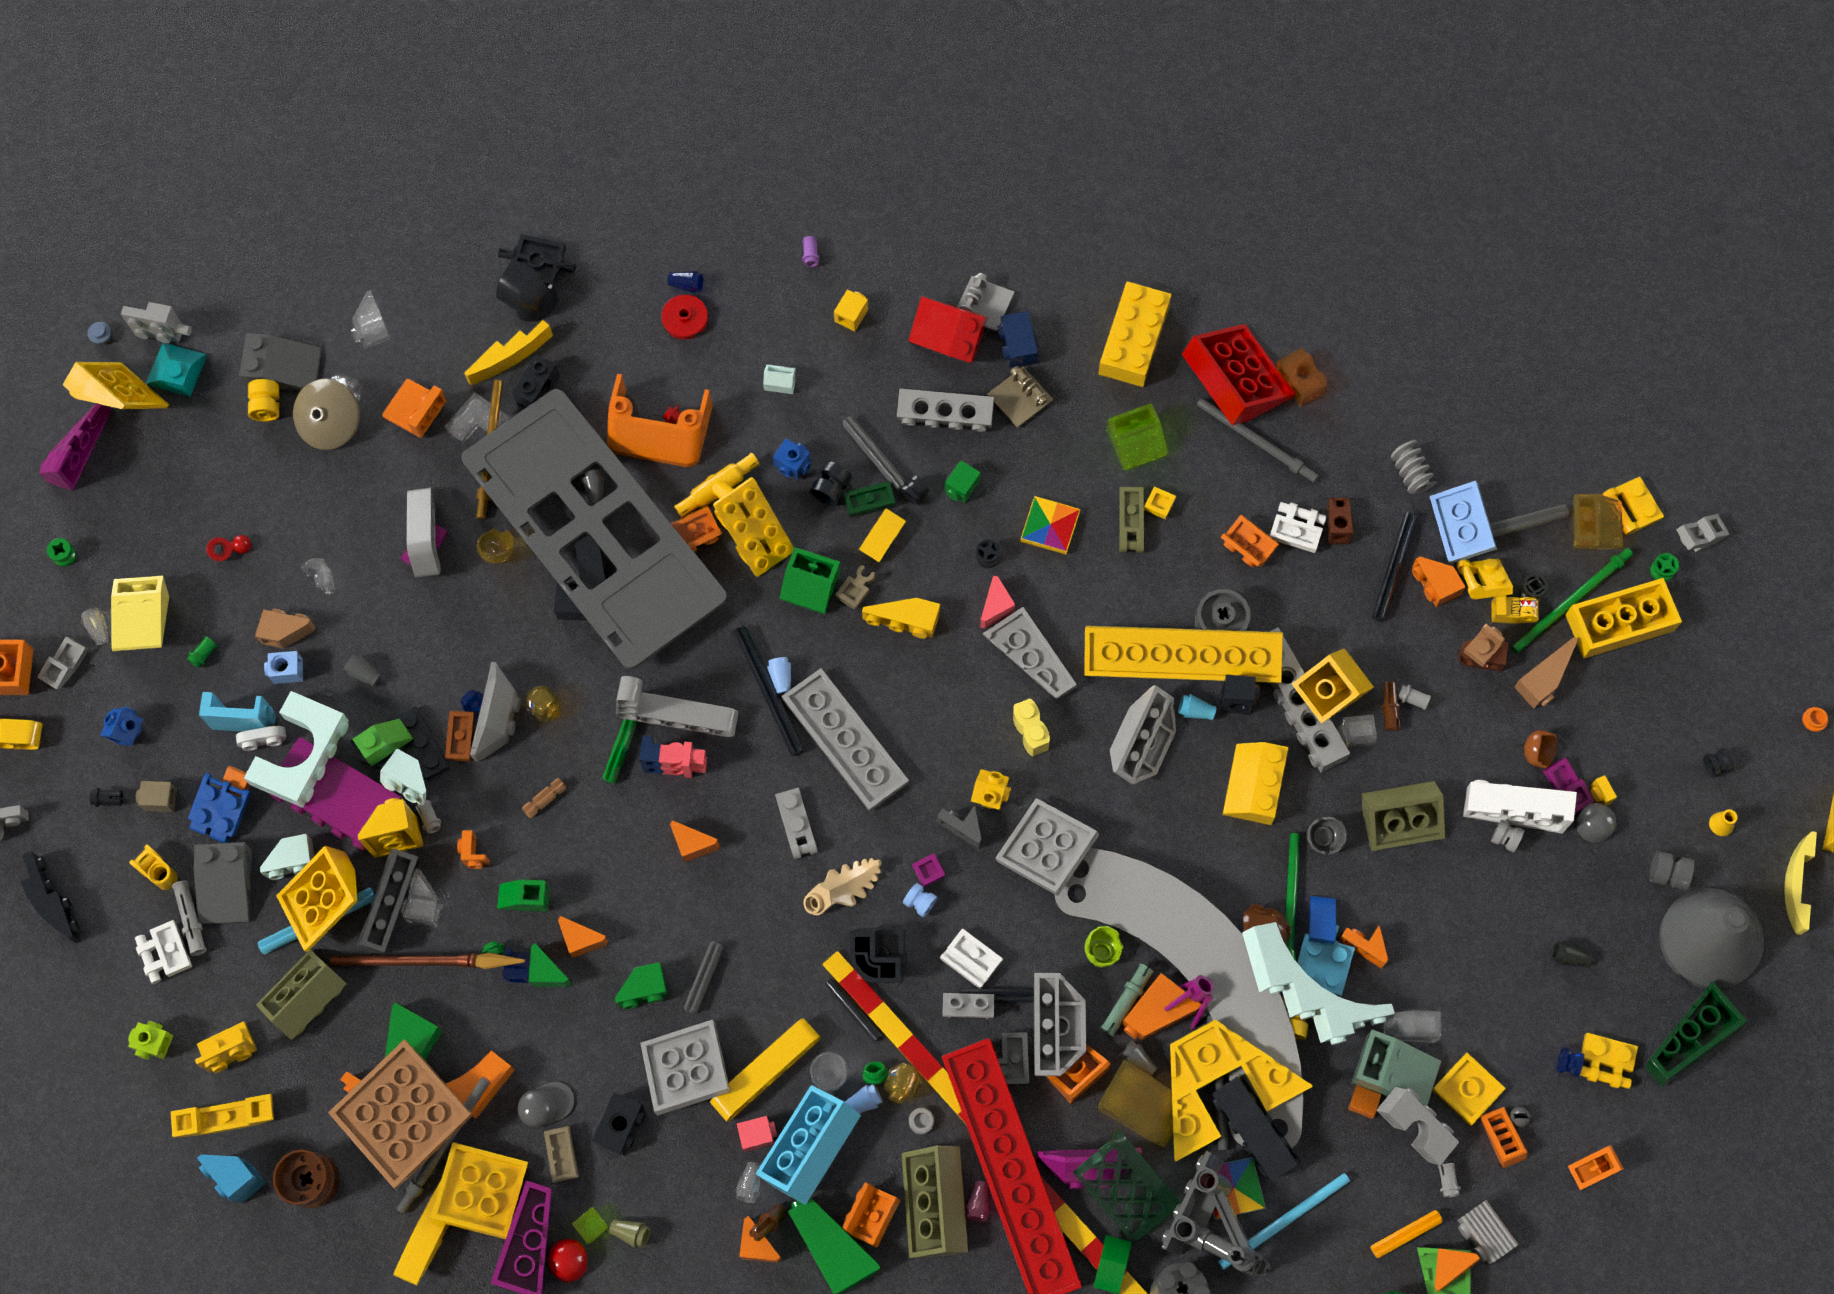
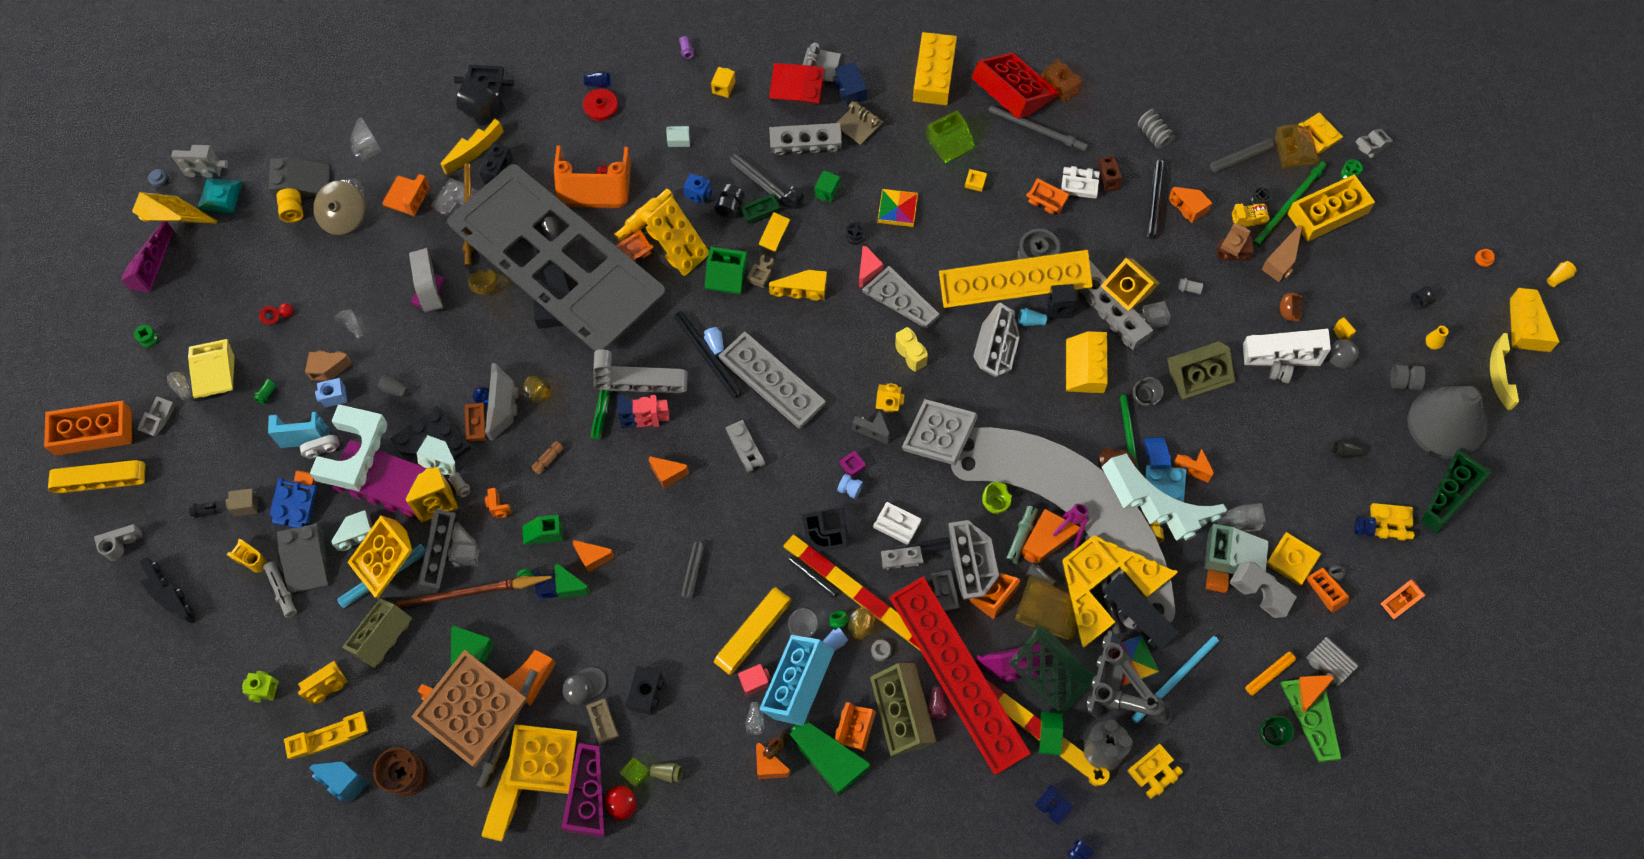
camera: 10 degrees left, 5 degrees down
(122, 726) = (208, 454): blue brick -> none
(169, 948) = (268, 616): white plate -> none
(382, 740) = (414, 432): bright green slope -> none
(643, 985) = (646, 583): green slope -> none
(685, 1067) = (690, 638): light grey plate -> none
(843, 886) = (789, 486): tan plant -> none
(1131, 518) = (957, 194): olive plate -> none
(1391, 707) = (1175, 295): reddish brown axle -> none
(1448, 1179) = (1294, 628): light grey pin -> none
(1463, 522) = (1200, 160): light blue plate -> none
(1491, 574) = (1225, 195): yellow plate -> none
(1564, 779) = (1311, 322): magenta slope -> none

